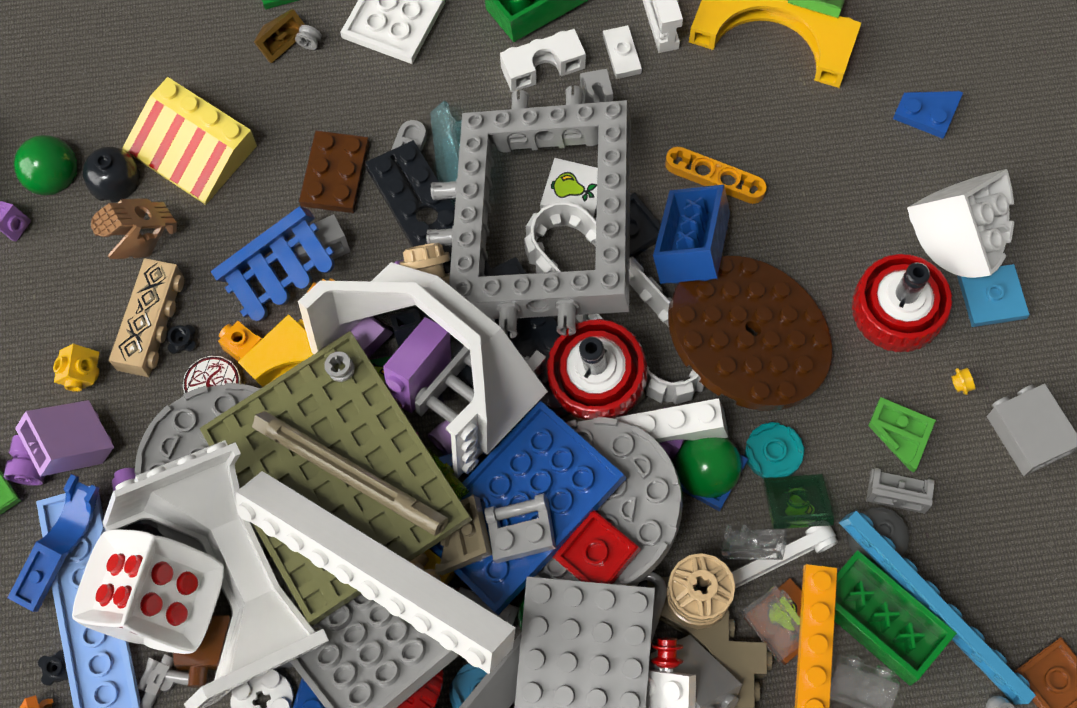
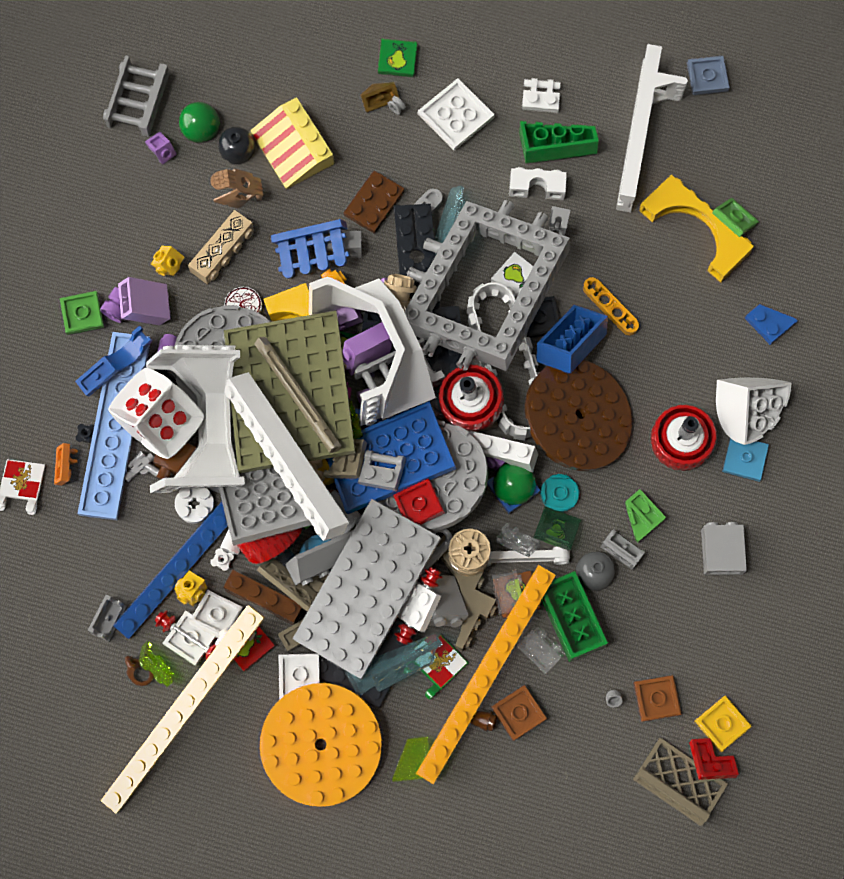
camera: 20 degrees right, 5 degrees up
(177, 332) = (241, 266): black plate -> none
(229, 340) = (267, 279): light orange brick -> none
(341, 375) = (319, 323): light grey bush -> none
(622, 52) = (591, 199): white plate -> none
(963, 381) = (696, 502): yellow plate -> none
(967, 638) = (602, 614): dark azure plate -> none

